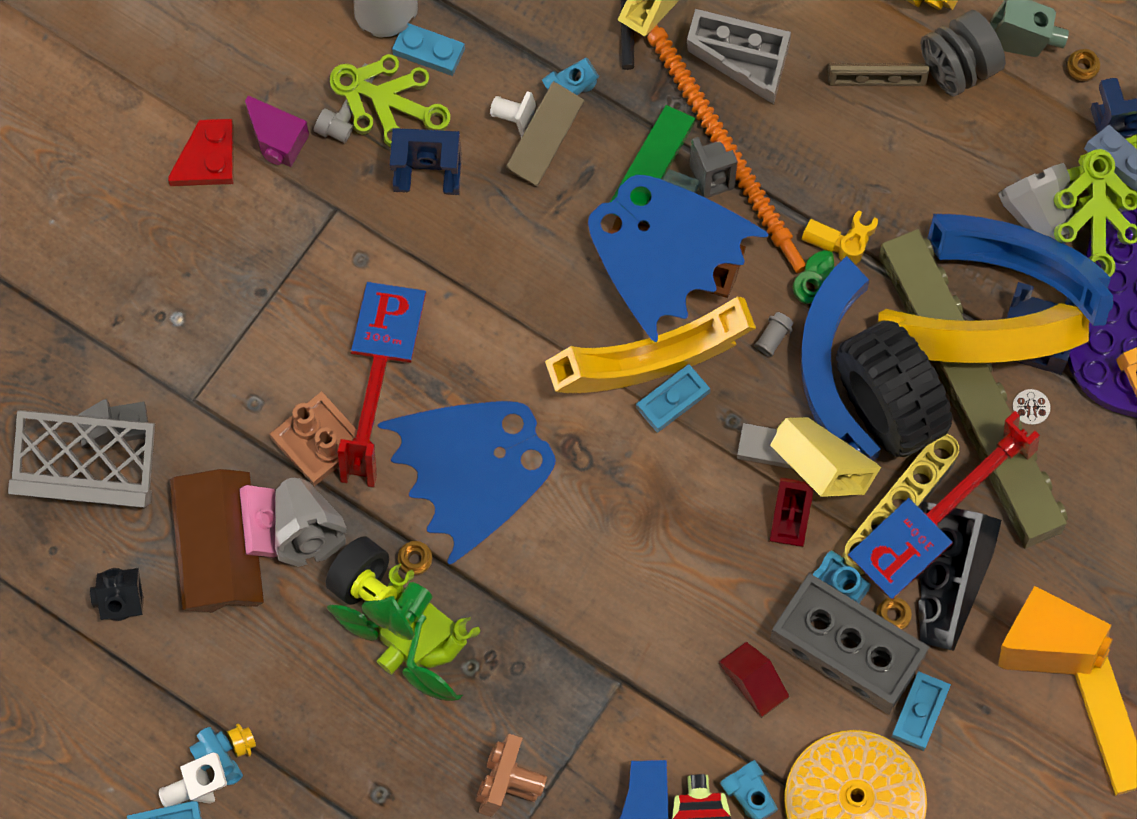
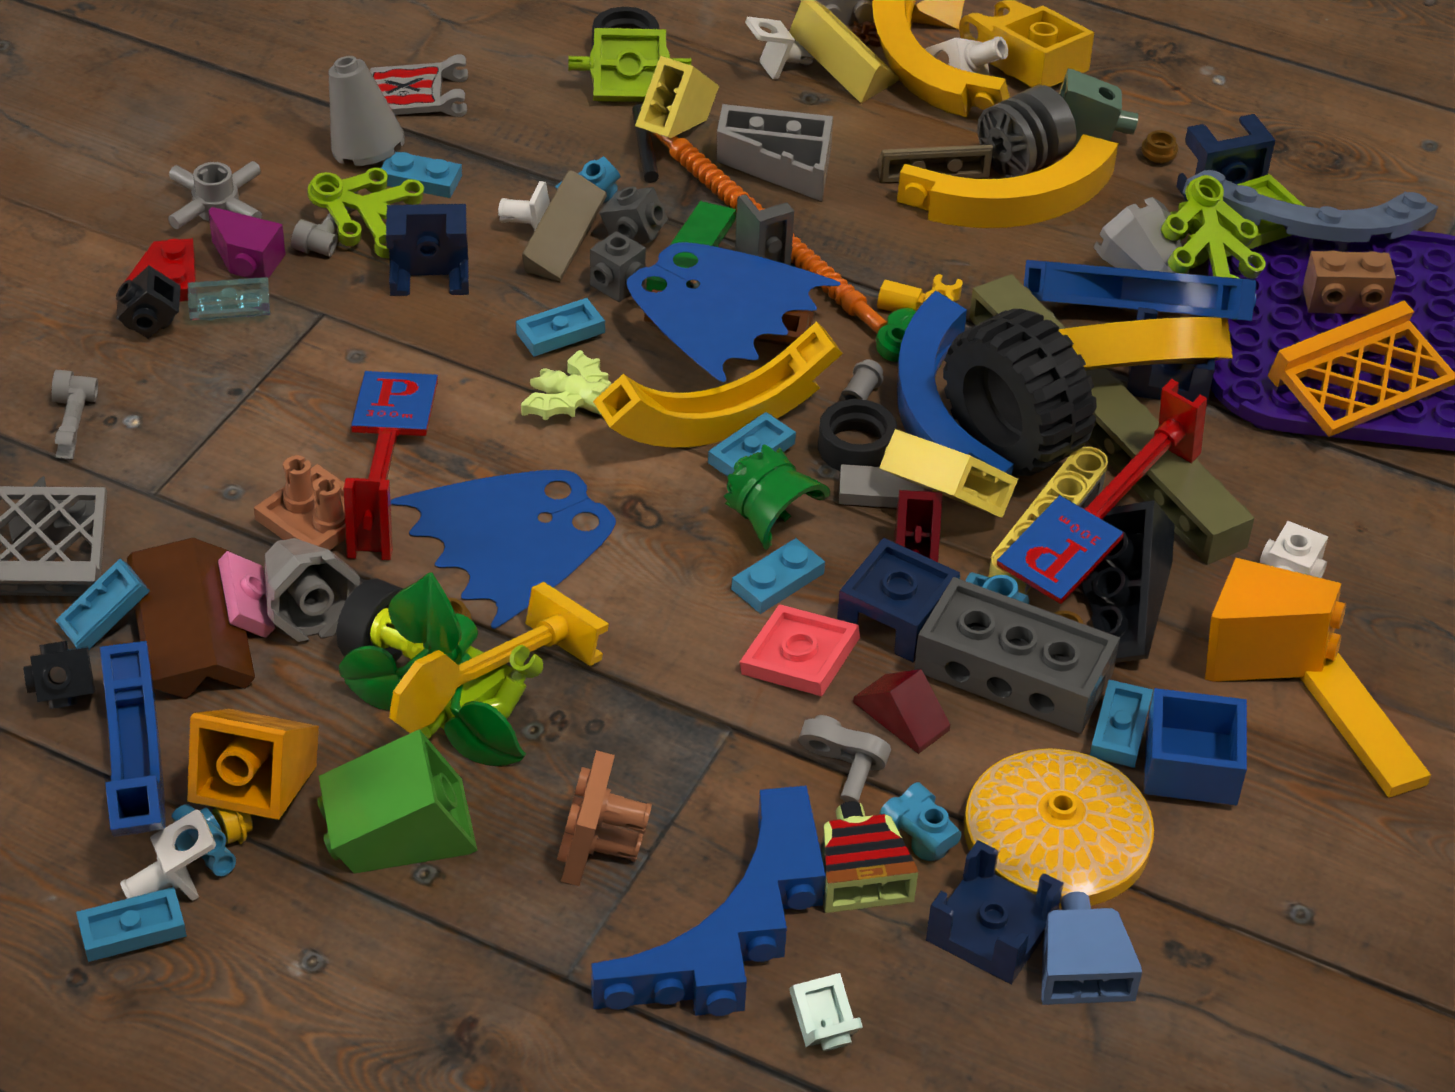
camera: 10 degrees left, 25 degrees down
(133, 289) = (74, 392): none -> light grey brick
(150, 526) = (102, 605): none -> dark azure plate
(173, 689) = (136, 781): none -> blue arch
(192, 201) = (148, 302): none -> black brick
(256, 697) = (249, 761): none -> light orange slope
(259, 193) = (228, 298): none -> clear light blue plate
(260, 65) = (213, 187): none -> light grey bar
(361, 745) = (395, 807): none -> bright green slope
(499, 578) = (435, 677): none -> yellow piece
(531, 248) = (560, 326): none -> dark azure plate
(537, 322) = (567, 392): none -> yellowish green animal
(585, 184) = (613, 263): none -> dark grey brick
(605, 126) = (635, 214): none -> dark grey brick
(677, 533) = (778, 575): none -> dark azure plate
(679, 458) = (765, 487): none -> green hat
(683, 614) = (800, 650): none -> coral plate
(690, 705) = (864, 750): none -> light grey piece
(766, 573) = (897, 591): none -> dark blue panel
(767, 370) = (855, 415): none -> black tyre
(945, 126) = (1014, 199): none -> yellow arch
(971, 748) = (1196, 746): none -> blue piece
(1091, 565) = (1297, 550): none -> white brick

